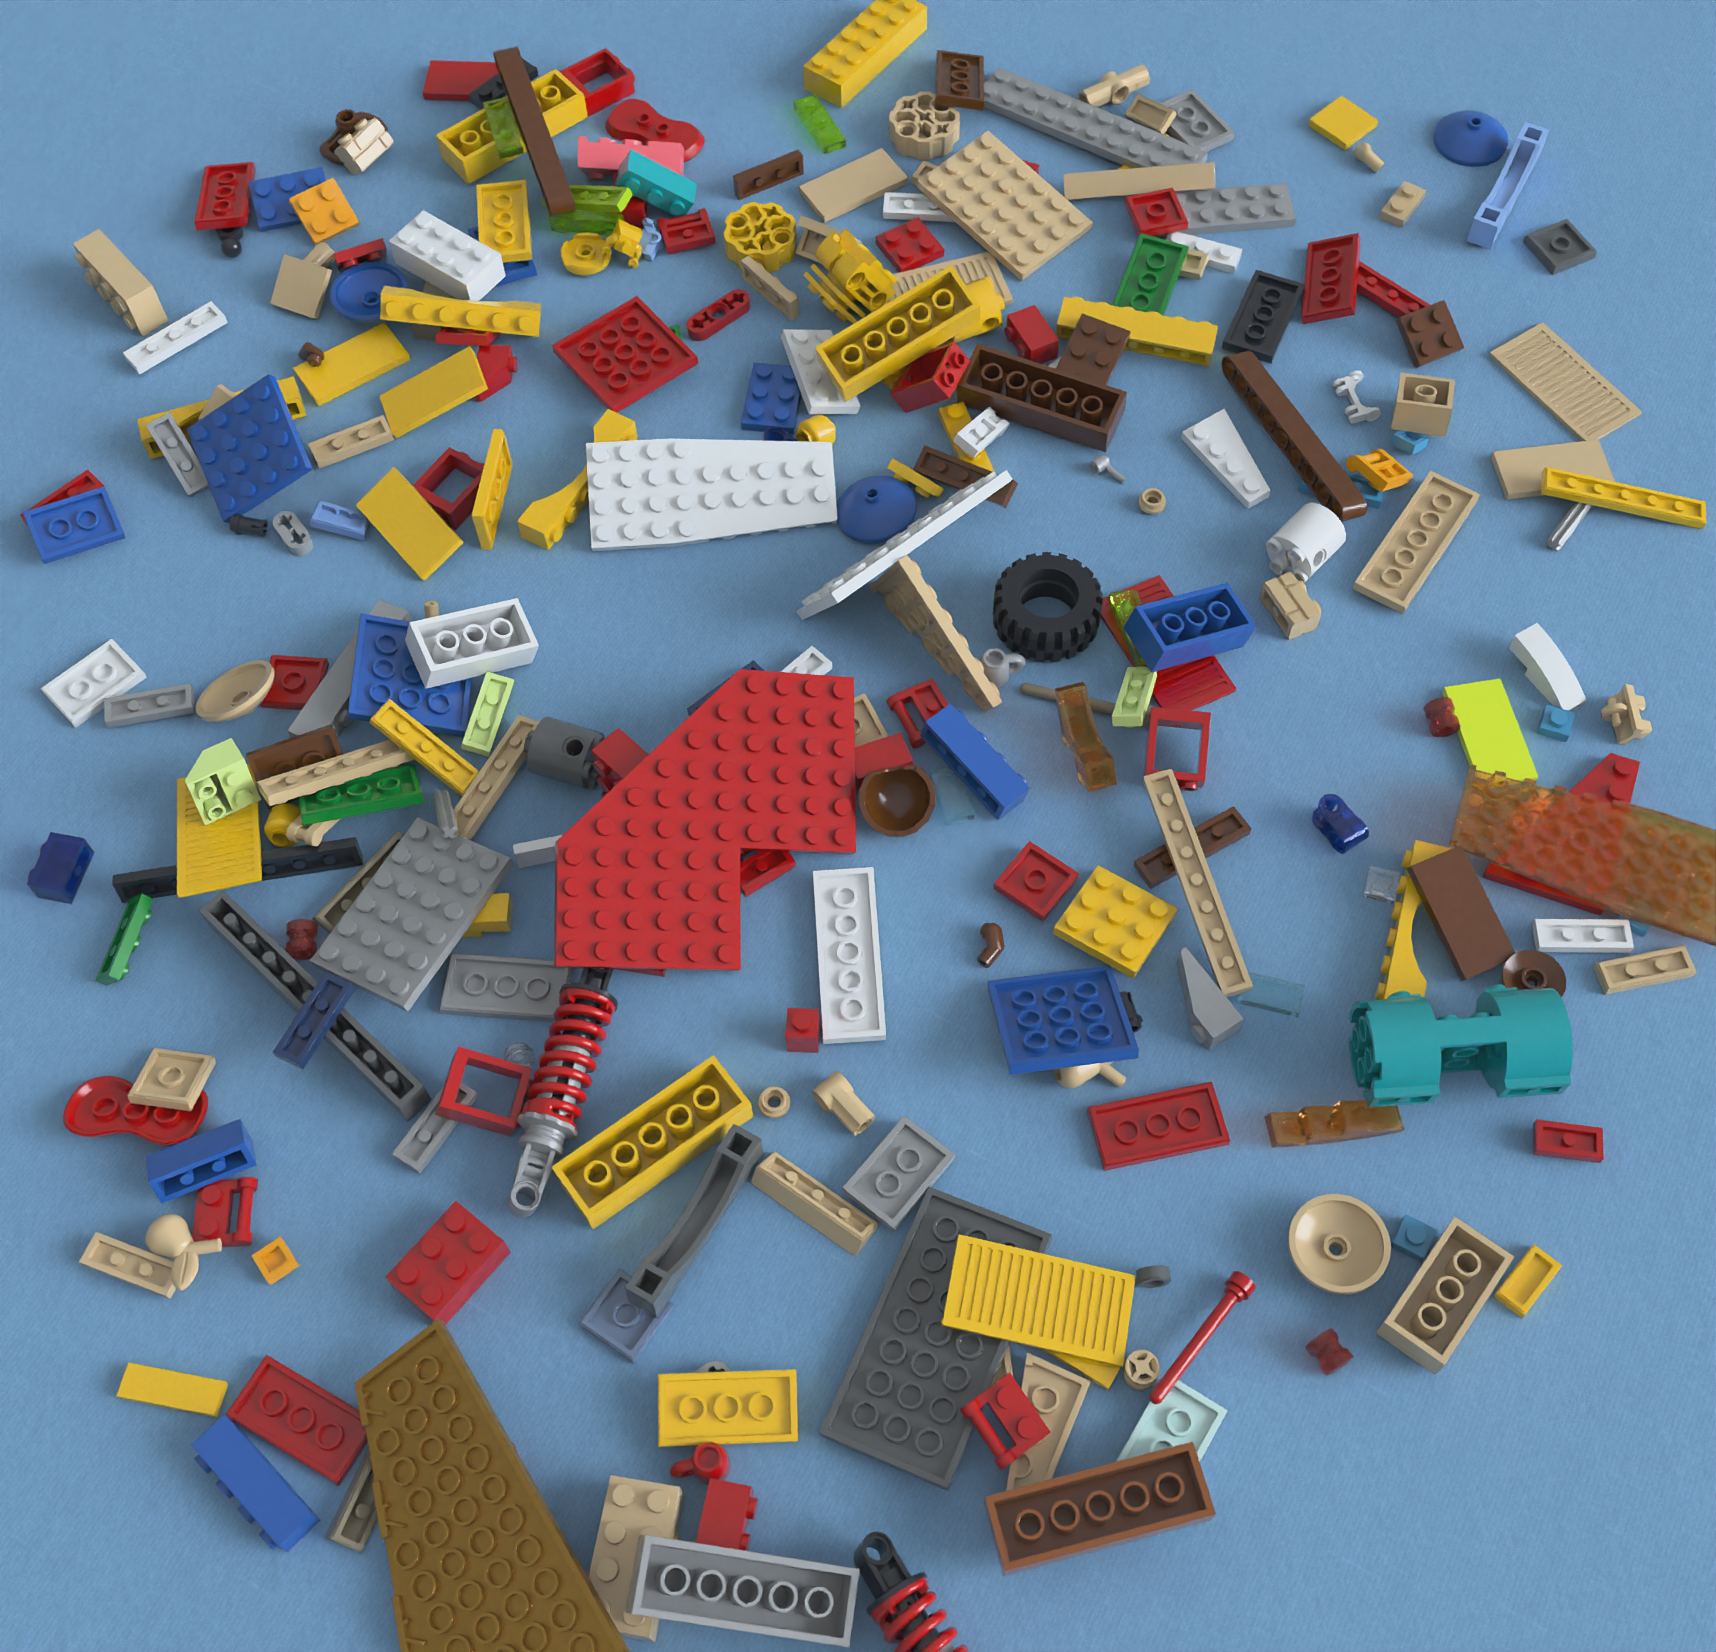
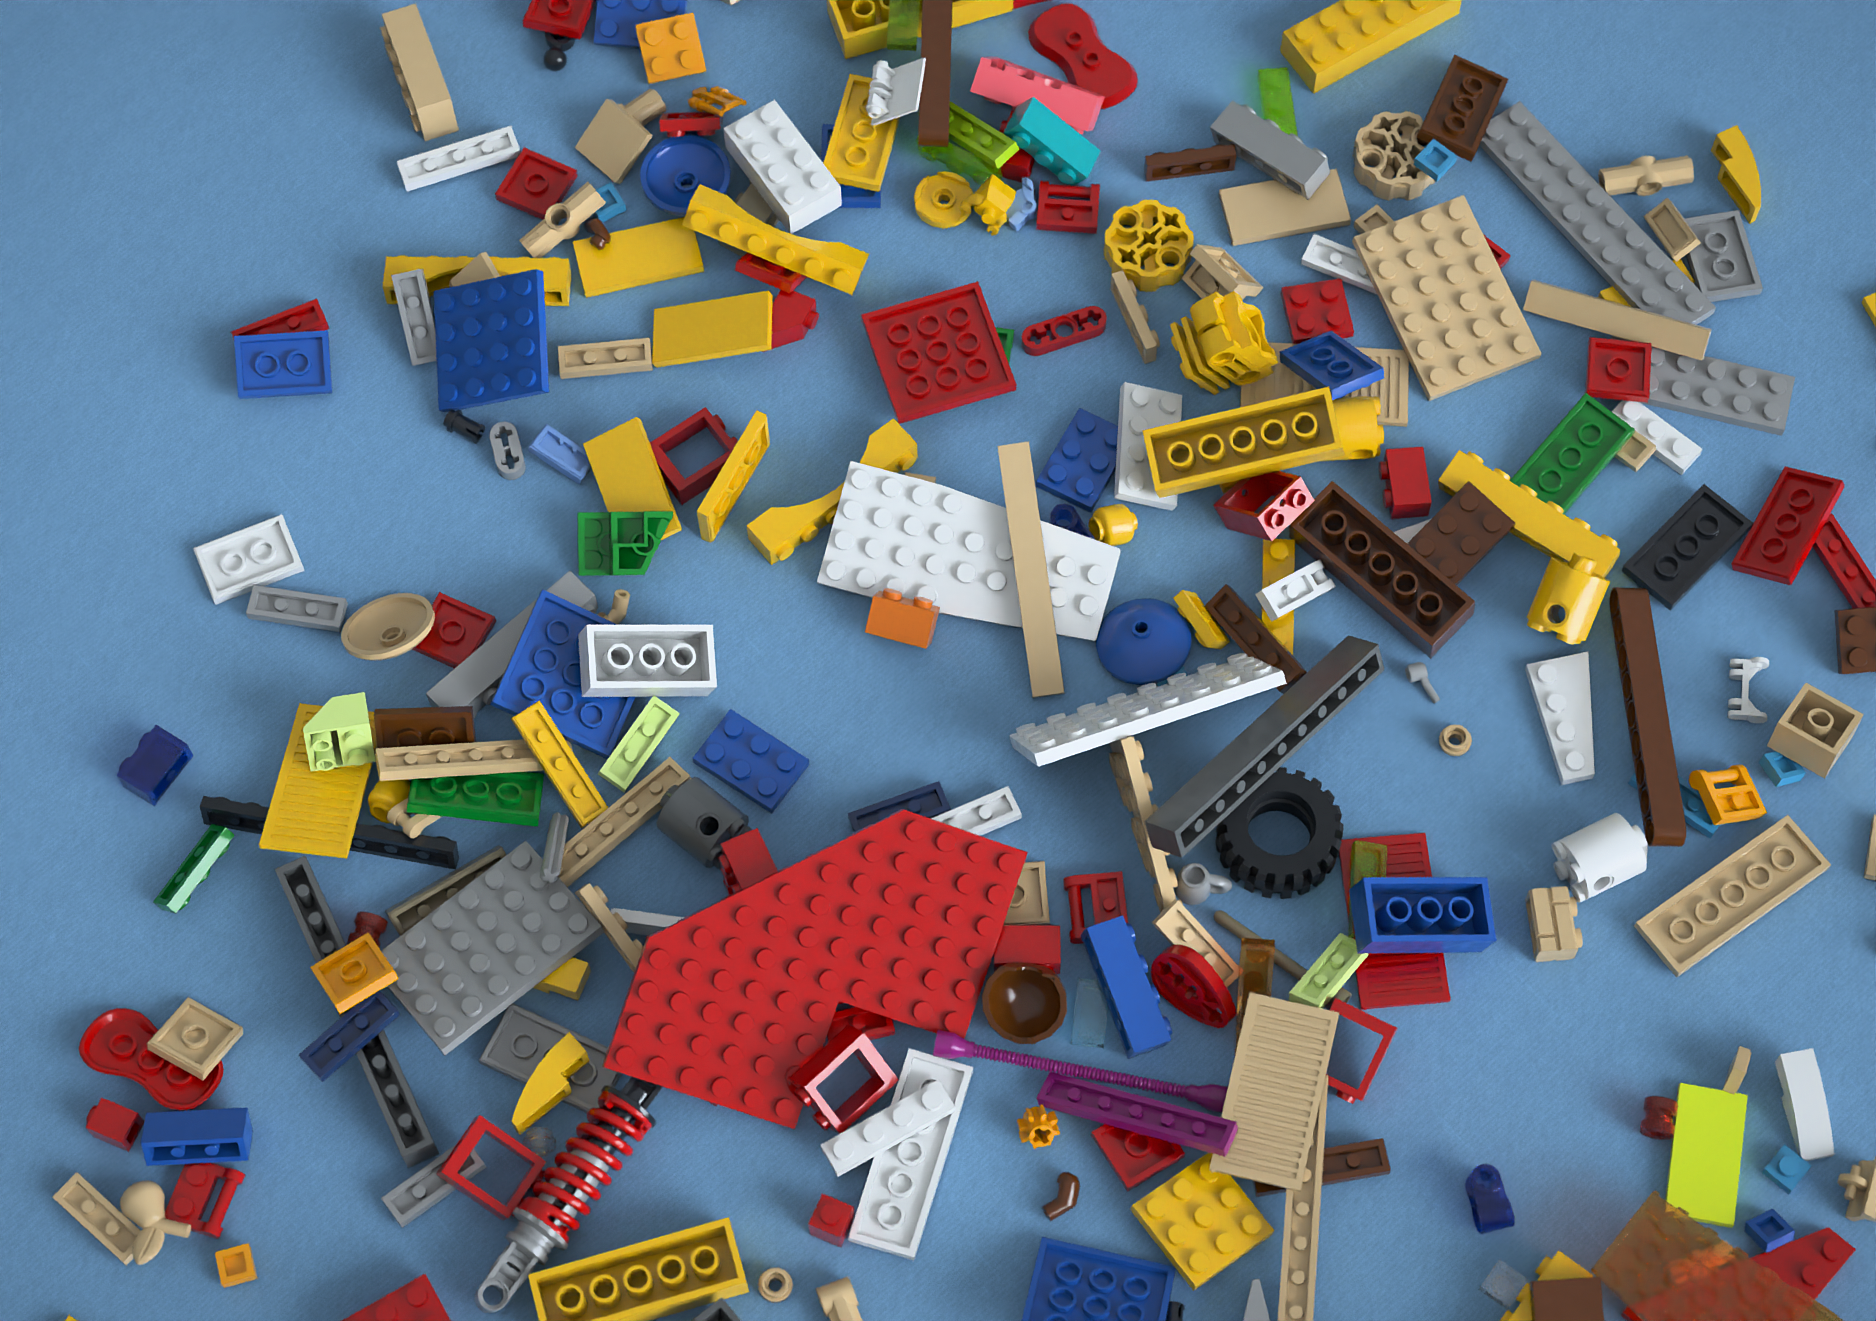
camera: 20 degrees right, 5 degrees up
(119, 1178) = (114, 1124): none -> red brick
(247, 337) = (535, 183): none -> red plate
(280, 349) = (575, 209): none -> tan piece
(300, 966) = (354, 973): none -> light orange plate
(310, 331) = (614, 203): none -> dark azure plate
(375, 234) = (716, 95): none -> light orange piece
(413, 566) = (618, 541): none -> green slope
(510, 1002) = (549, 1082): none -> yellow slope
(518, 181) = (894, 90): none -> white hinge
(522, 855) = (612, 924): none -> tan plate
(588, 698) = (751, 761): none -> blue plate
(673, 550) = (902, 618): none -> orange brick
(766, 478) = (1031, 570): none -> tan tile
(783, 887) = (845, 1043): none -> red window
(821, 938) = (888, 1127): none -> white plate
(829, 145) = (1271, 149): none -> light grey brick
(933, 262) = (1332, 364): none -> blue plate
(947, 894) = (1038, 1126): none -> light orange gear
(956, 113) = (1435, 160): none -> dark azure plate
(1009, 544) = (1264, 746): none -> dark grey brick
(1019, 711) = (1183, 929): none -> tan plate
(1028, 852) = (1138, 1114): none -> magenta plate
(1031, 727) = (1197, 972): none -> red piece
(1078, 824) = (951, 1046): none -> magenta hose
(1134, 795) = (1276, 1090): none -> tan window
(1180, 65) = (1738, 171): none -> yellow slope
(1195, 360) = (1574, 589): none -> yellow cylinder
(1485, 661) = (1737, 1070): none -> tan tile
(1568, 770) = (1769, 1230): none -> blue plate

